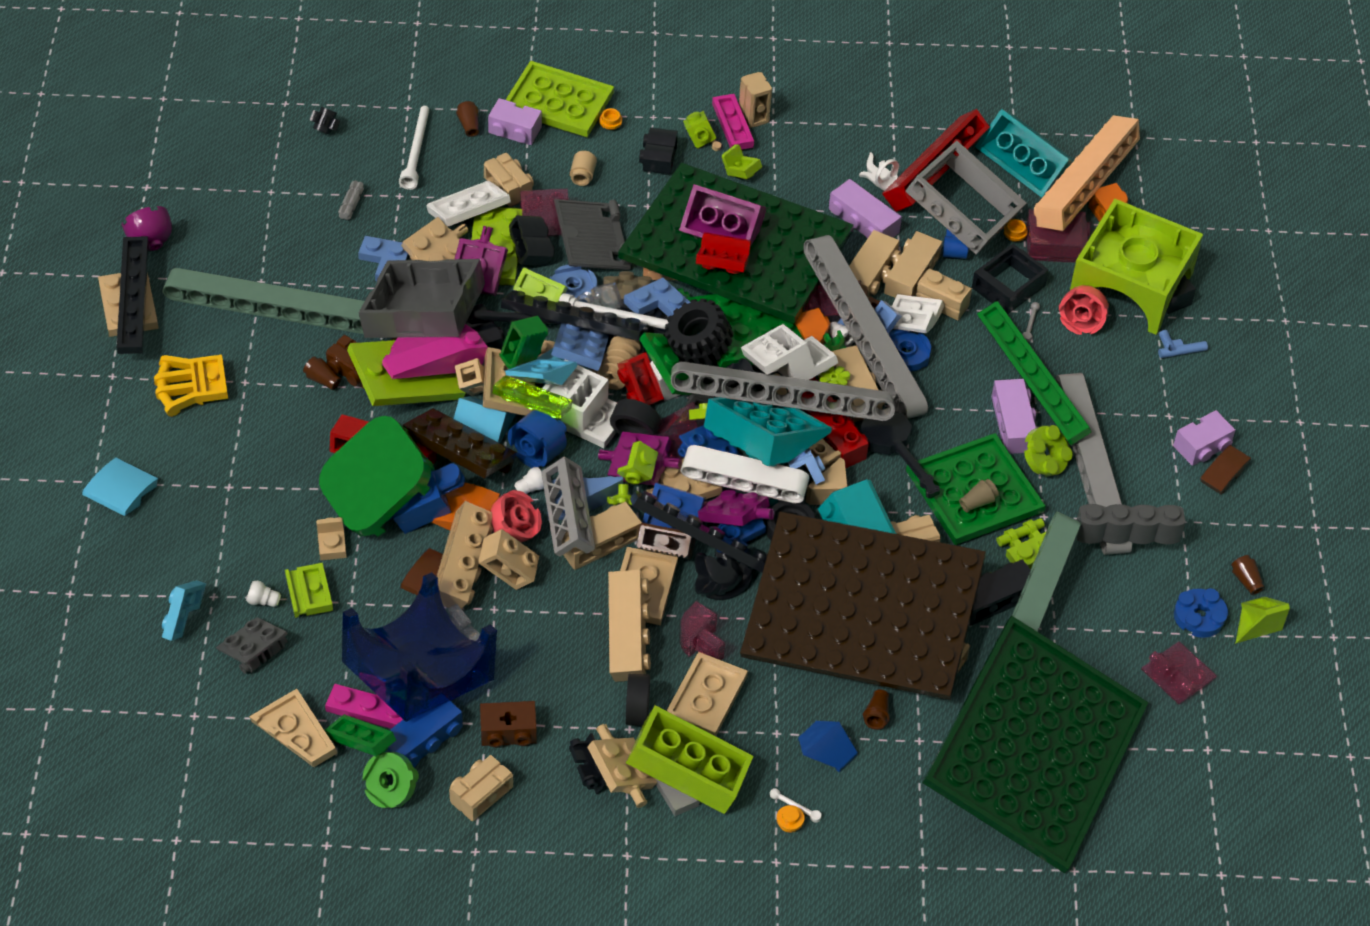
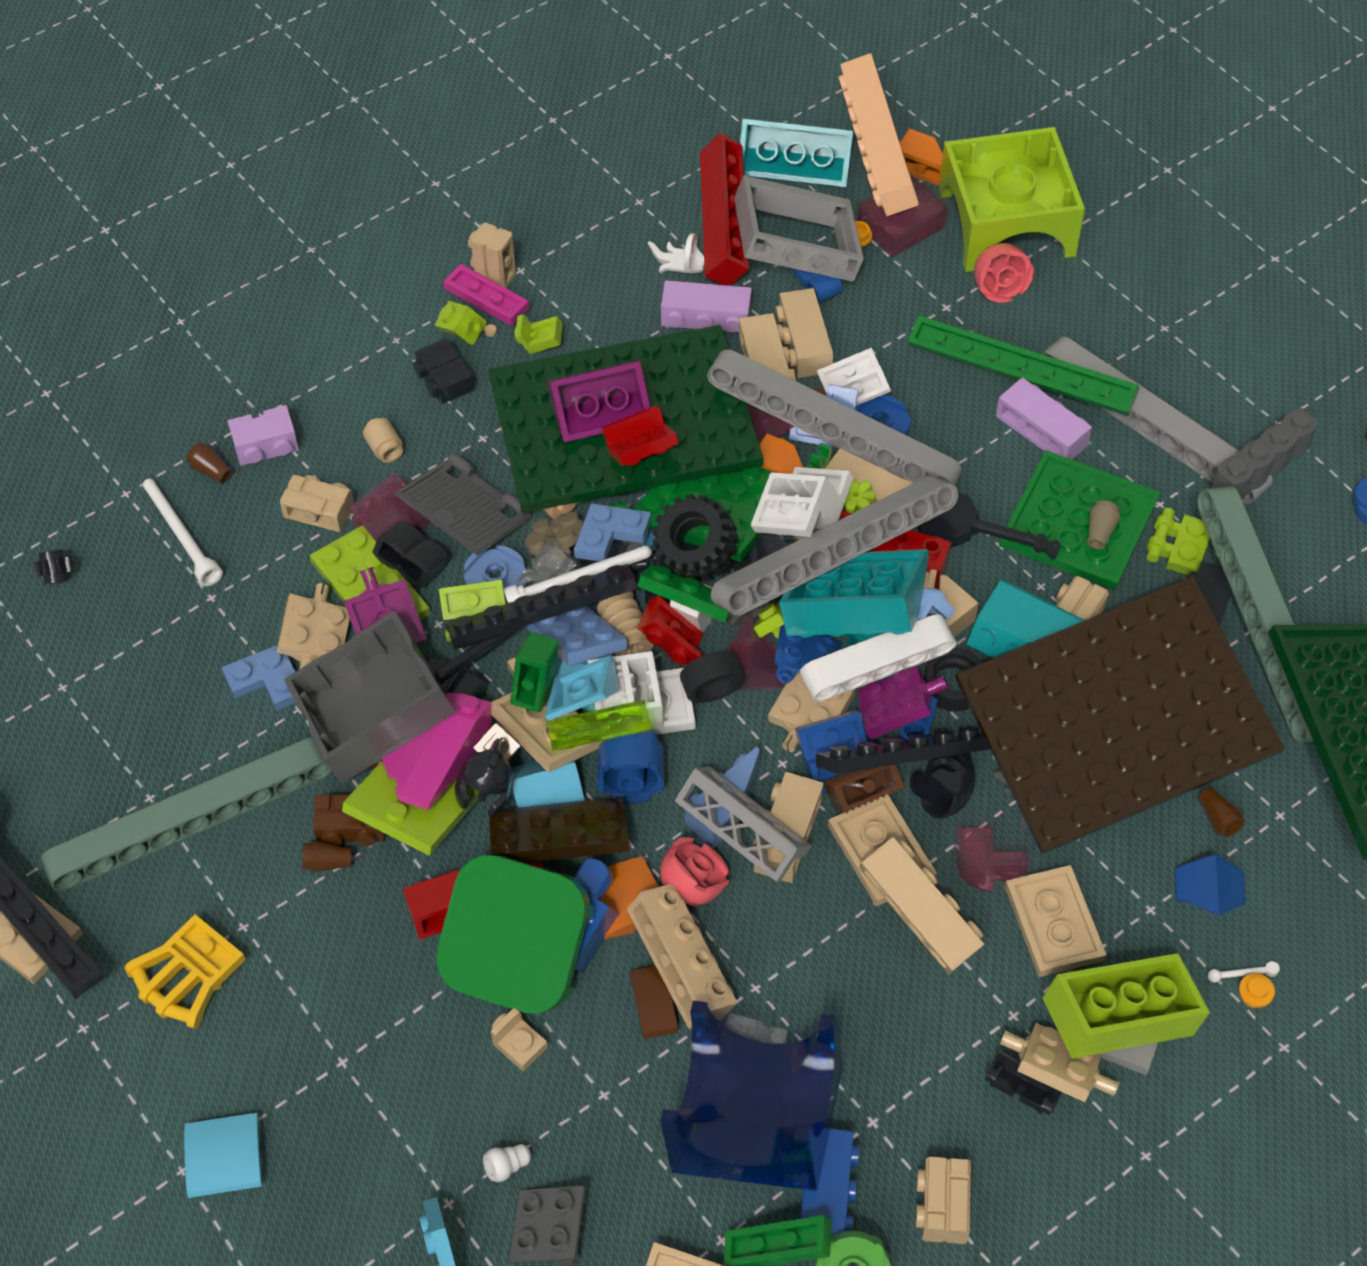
camera: 35 degrees left, 5 degrees up
(309, 590) = (550, 1116): lime plate -> none
(351, 200) = (165, 637): light grey axle -> none
(361, 706) = (733, 1206): dark pink plate -> none
(445, 382) = (487, 773): none -> black helmet
(468, 203) = (301, 557): white tile -> none
(508, 559) = (734, 922): tan brick -> none
(508, 723) = (908, 1088): reddish brown brick -> none
(530, 482) = (663, 816): white piece -> none
(563, 97) = (293, 373): lime plate -> none
(610, 119) = (358, 369): light orange plate -> none
(621, 454) = (748, 714): magenta plate -> none
(622, 496) = (772, 768): lime plant -> none
(637, 699) = (1006, 978): black tyre -> none
(640, 464) = (770, 719): lime bracket -> none
(834, 327) = (805, 445): white piece -> none
(953, 293) = (857, 336): tan brick -> none
(993, 290) = (903, 306): black window -> none
(1035, 306) = (948, 300): light grey hinge -> none
(1058, 451) = (1112, 435): lime plate -> none
(1177, 346) = (1106, 257): medium blue hose -> none
(1203, 440) = (1222, 329): lavender brick -> none
(1225, 469) = (1267, 346): reddish brown slope -> none

